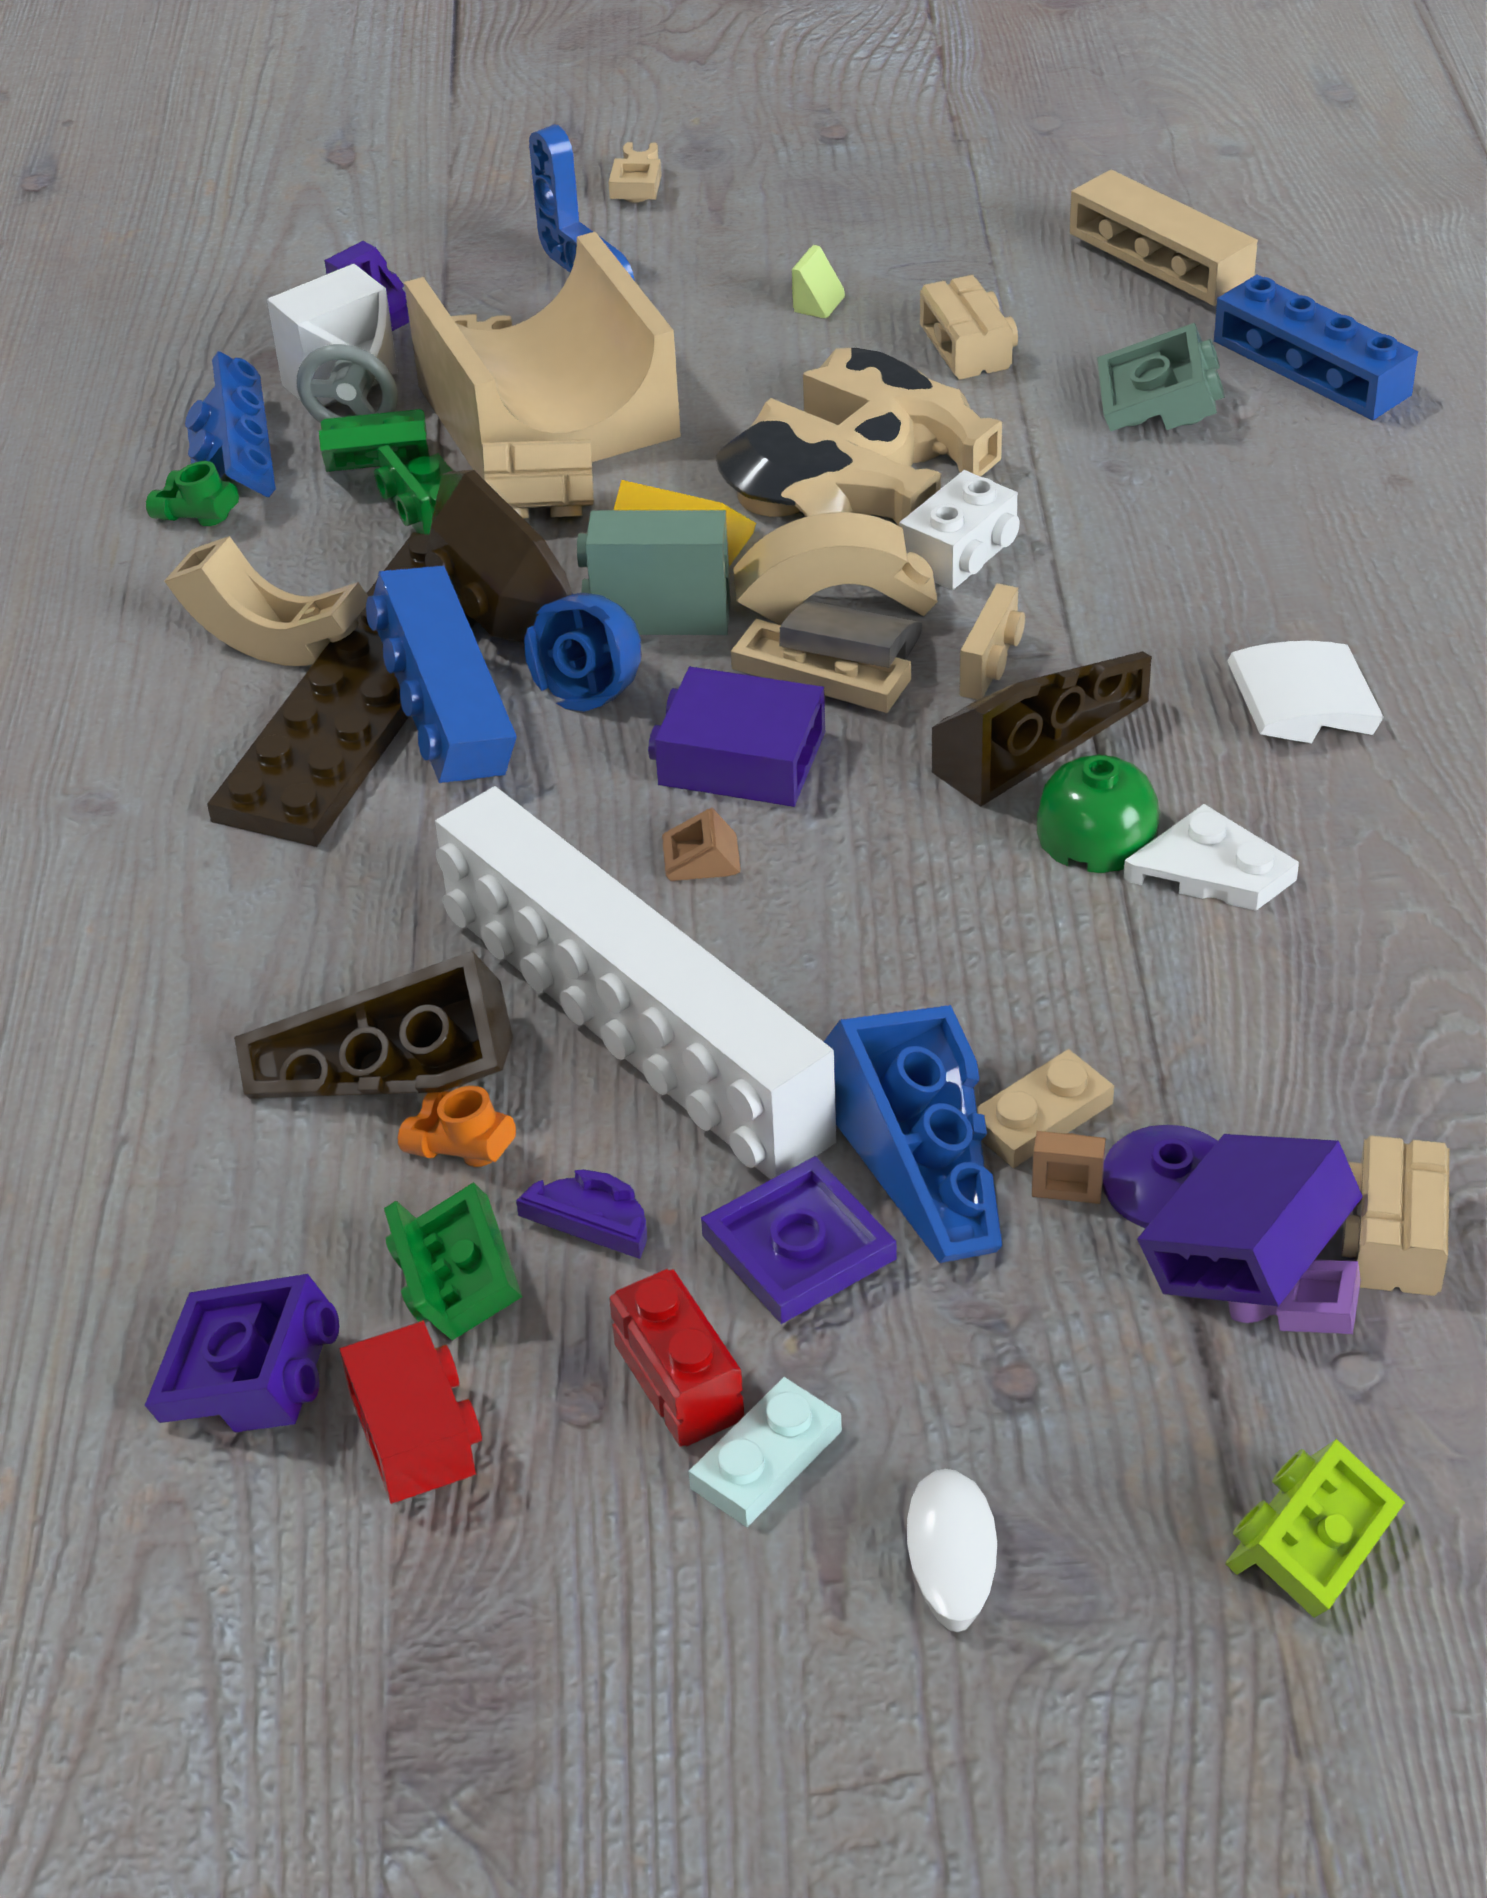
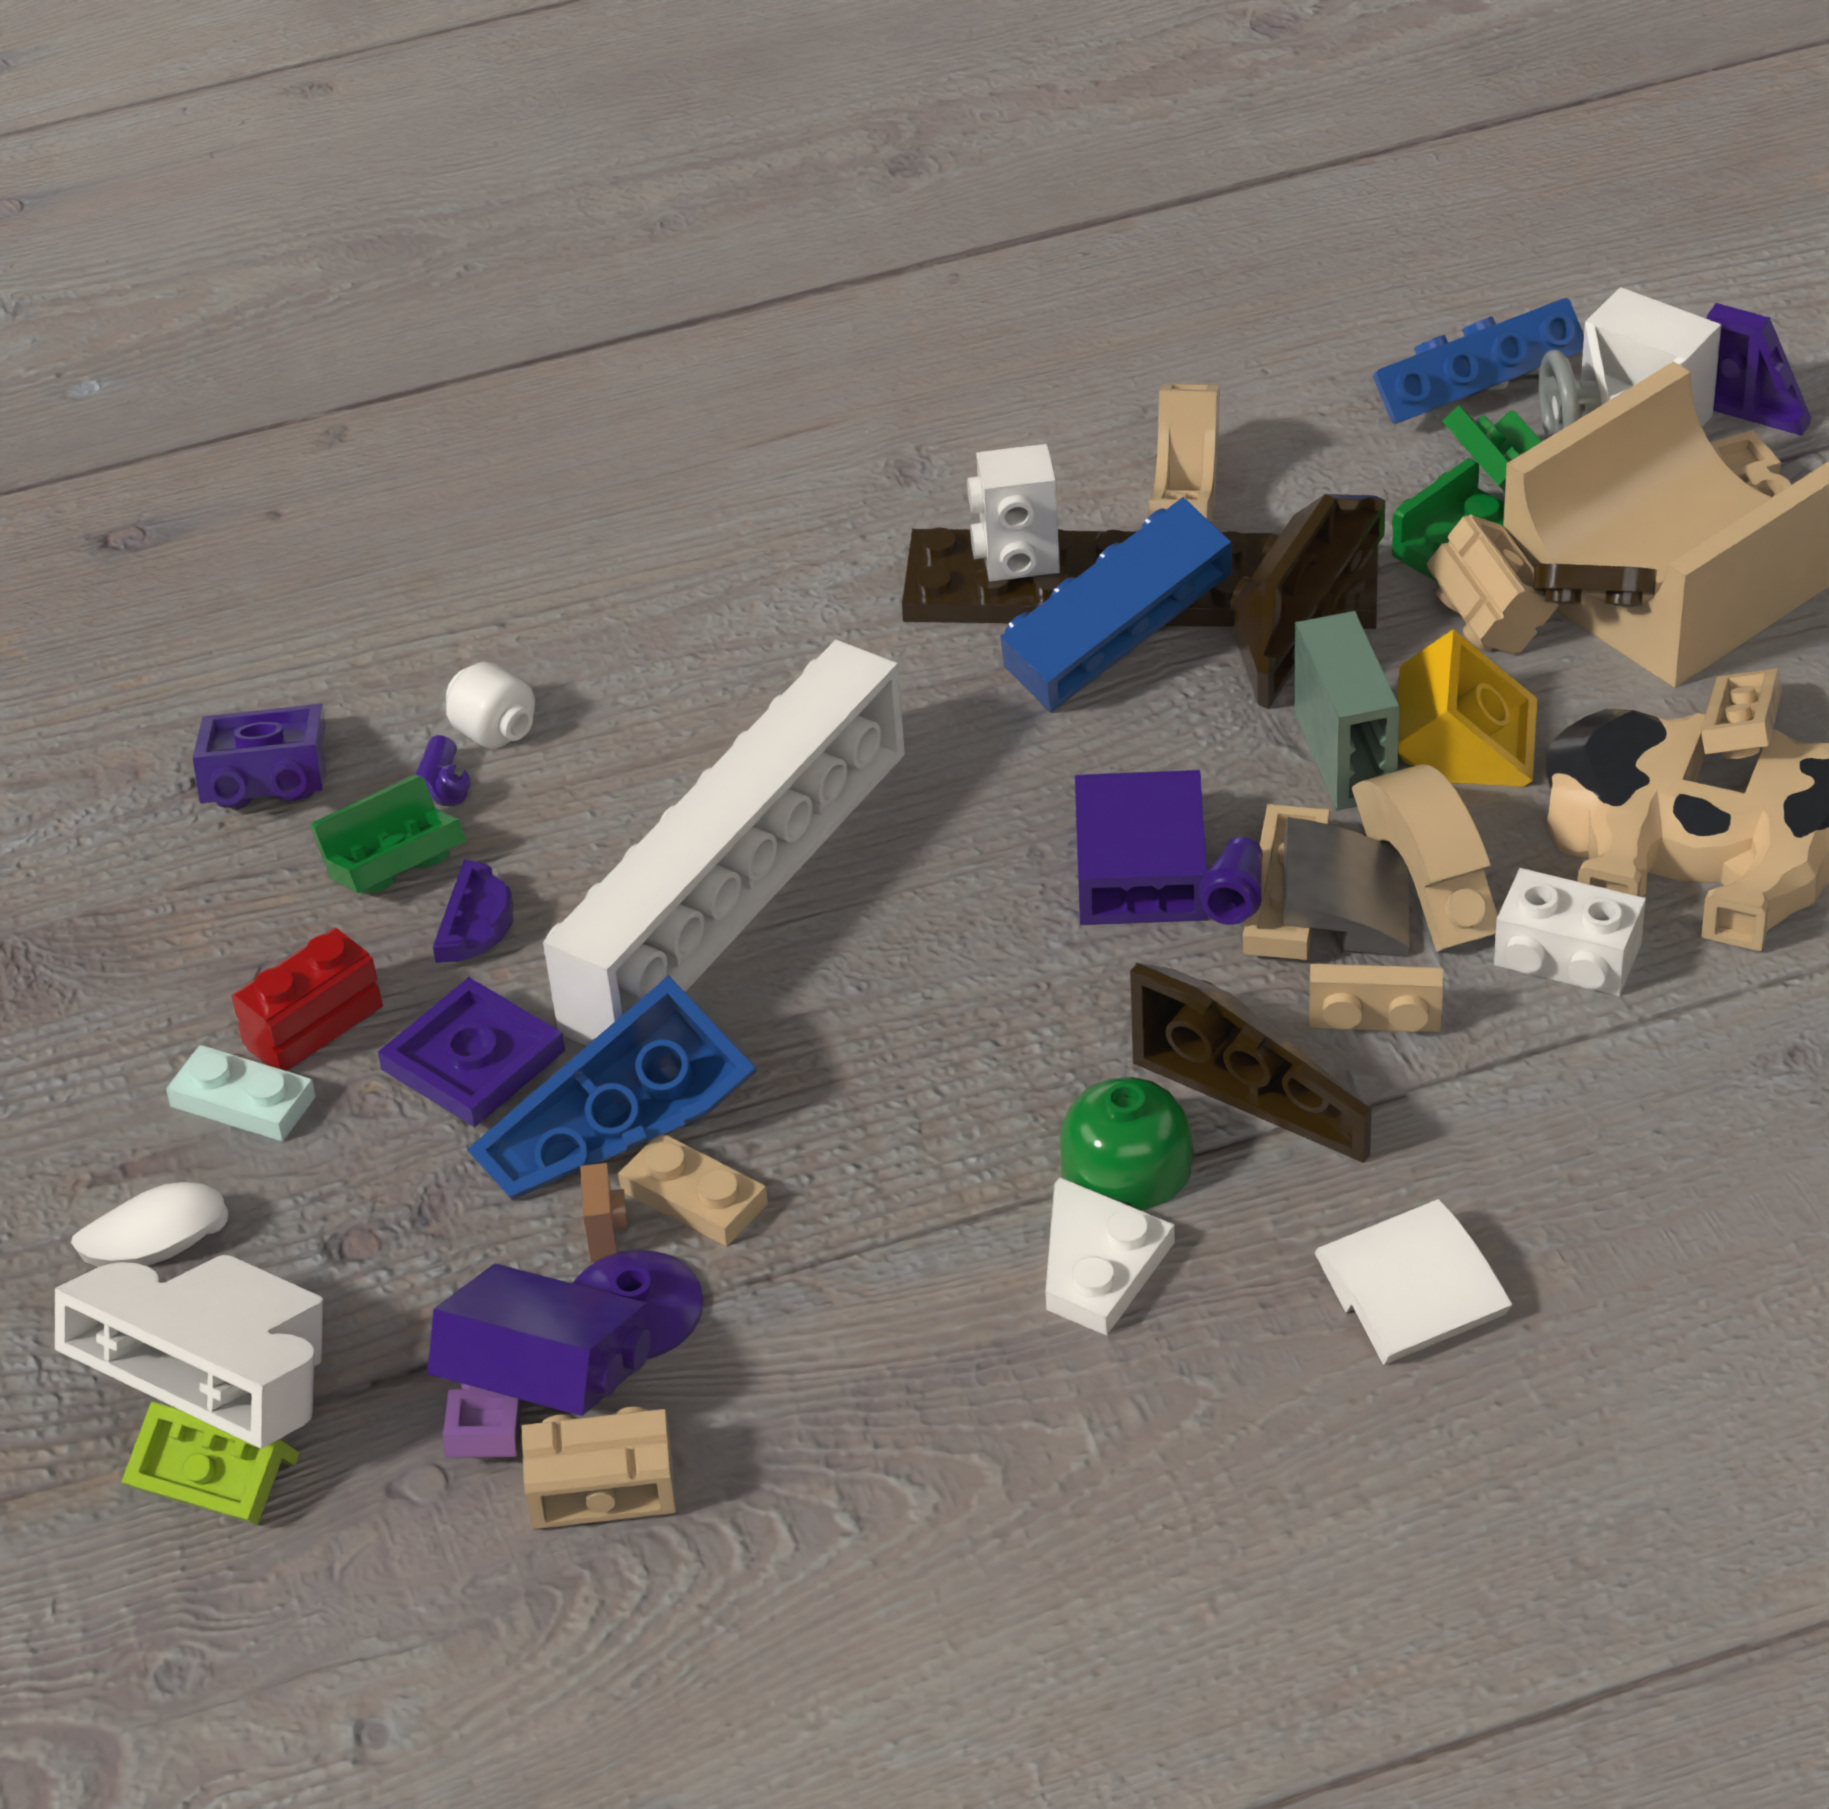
camera: 75 degrees right, 0 degrees up
(193, 493) = (1355, 369): green plate -> none
(277, 1151) = (488, 705): none -> white head
(303, 689) = (1016, 512): none -> white brick
(350, 1220) = (437, 770): none -> dark purple arm
(393, 1038) = (630, 733): dark brown wedge -> none
(410, 1411) = (213, 856): red brick -> none
(458, 1125) = (547, 803): orange plate -> none
(583, 650) = (1220, 700): blue cylinder -> none
(618, 389) = (1620, 583): none -> dark brown plate
(701, 848) = (981, 872): medium nougat slope -> none
(788, 379) = (1741, 713): none -> tan plate
(845, 674) = (1233, 883): none -> dark purple cone
(1191, 1479) = (208, 1342): none -> white brick

